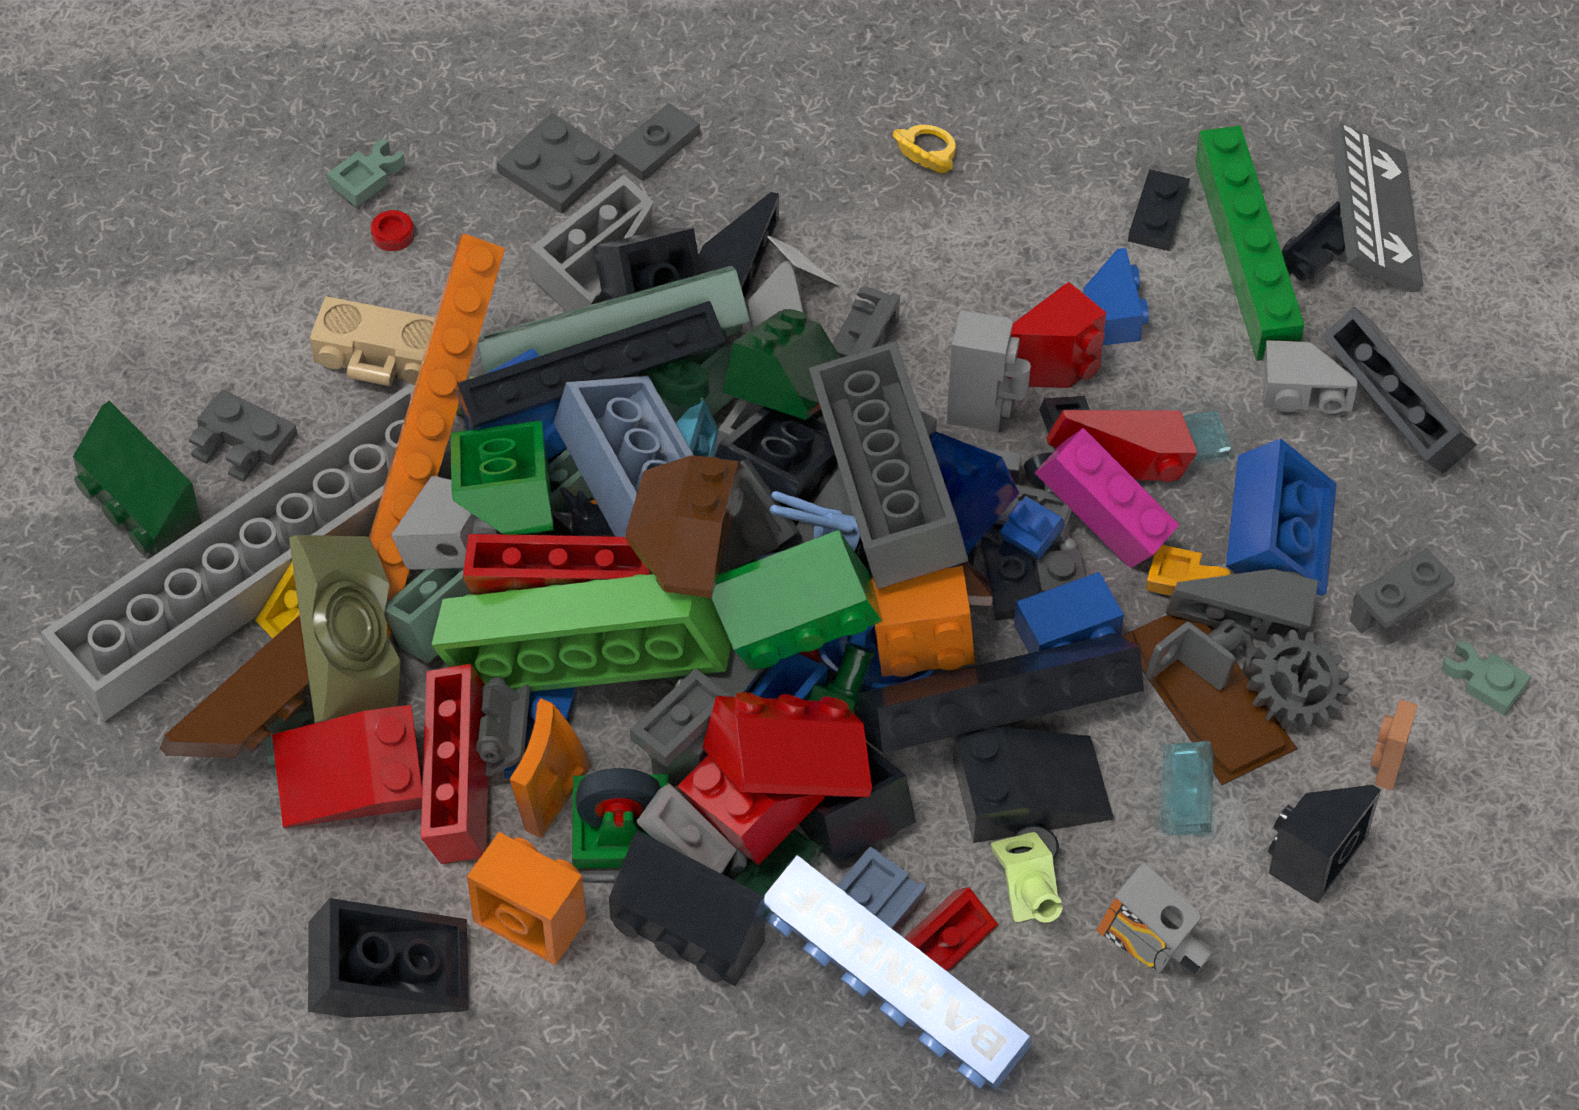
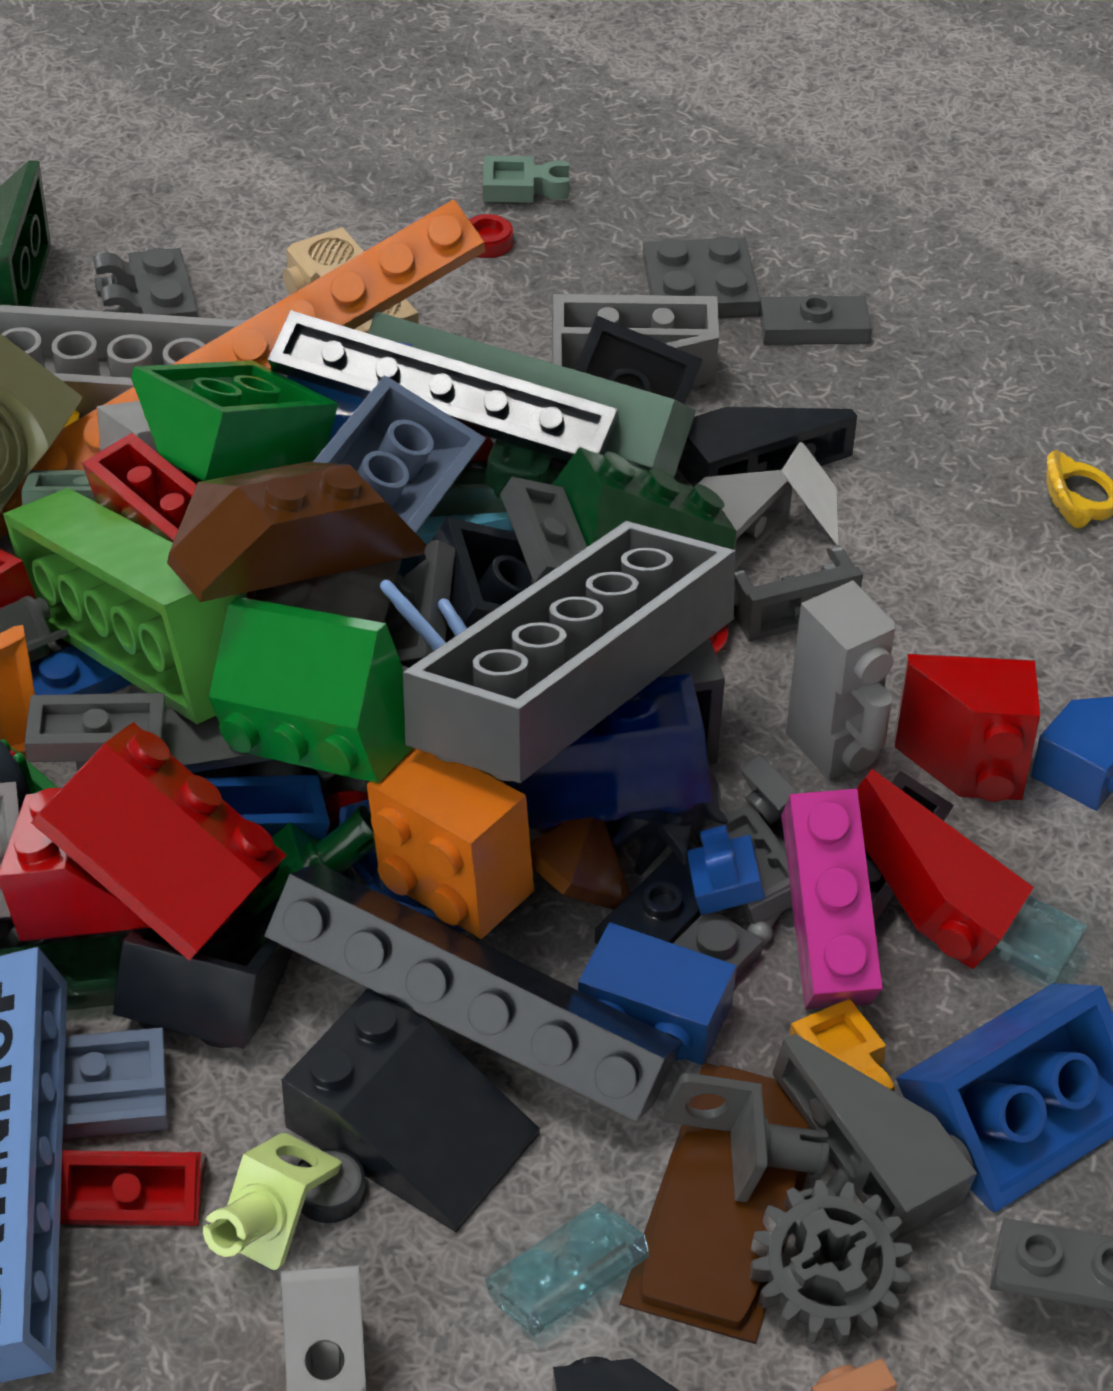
camera: 45 degrees right, 10 degrees down
(770, 409) = (542, 524): none -> dark grey plate

